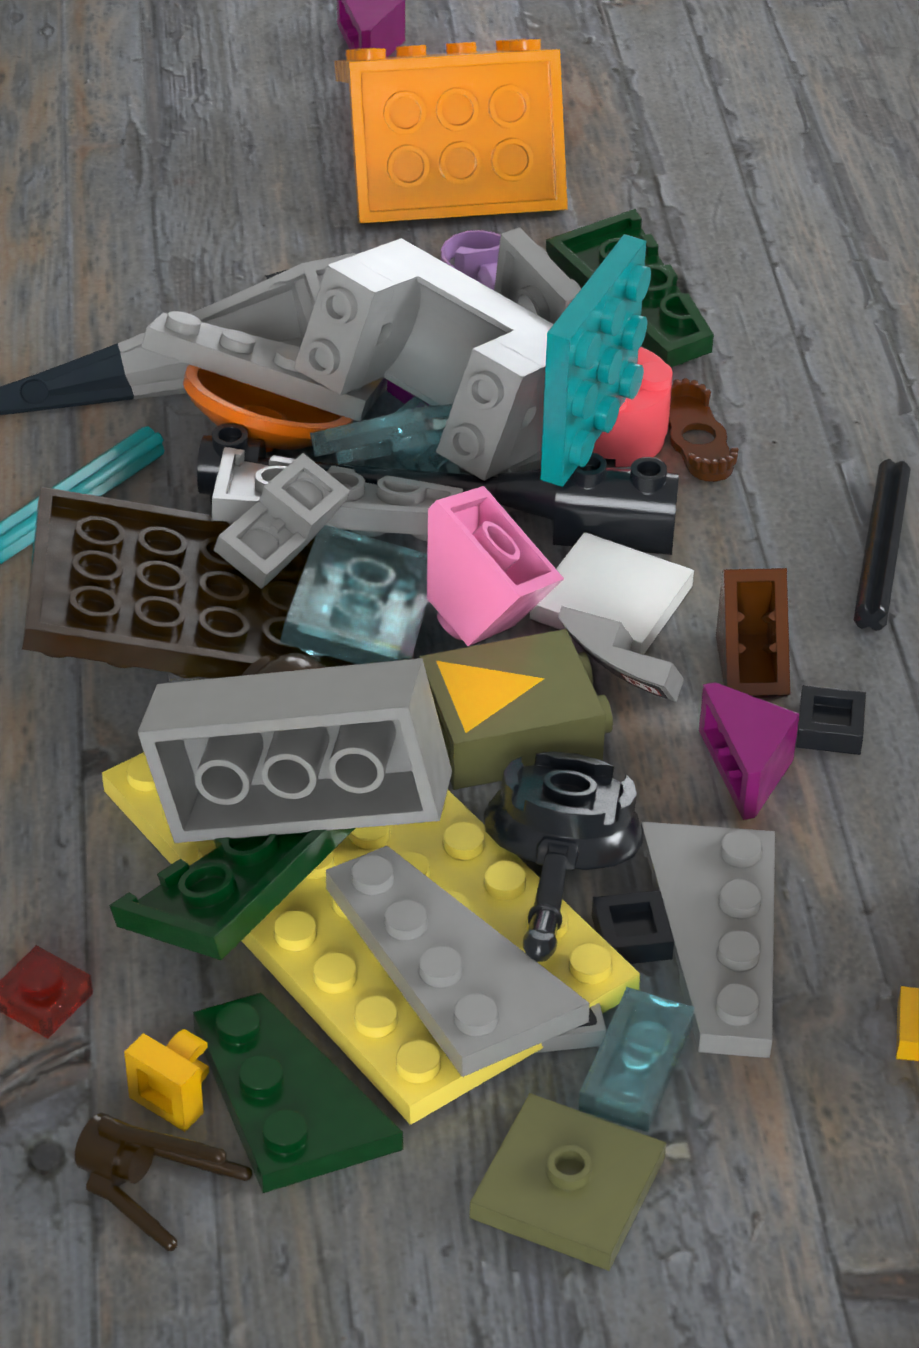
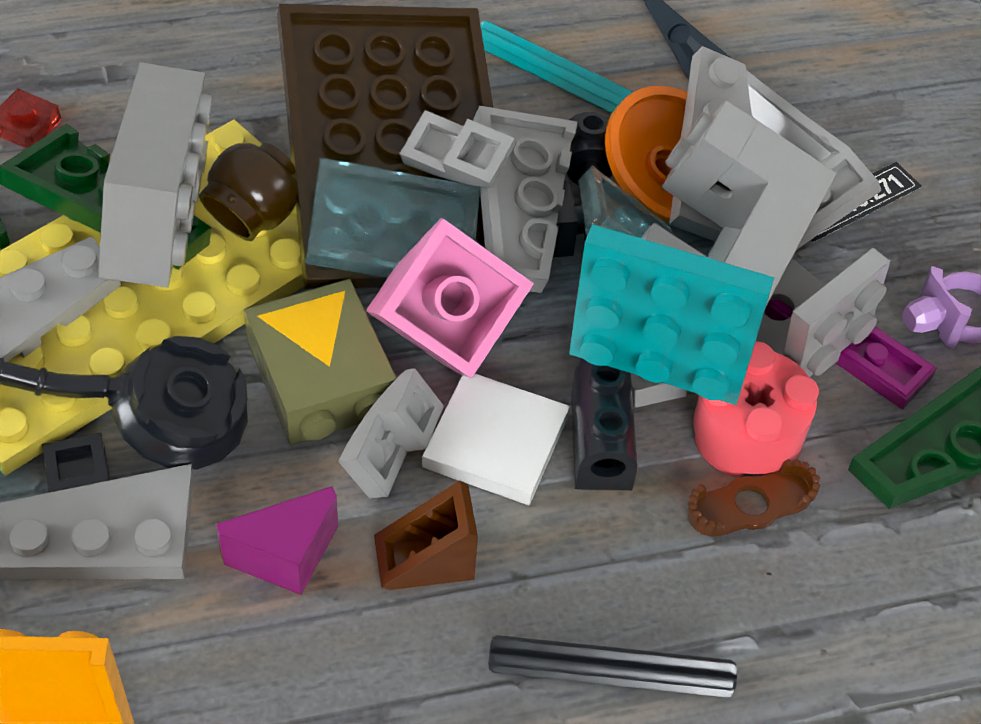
camera: 80 degrees right, 10 degrees up
(831, 720) = (345, 620): black tile -> none

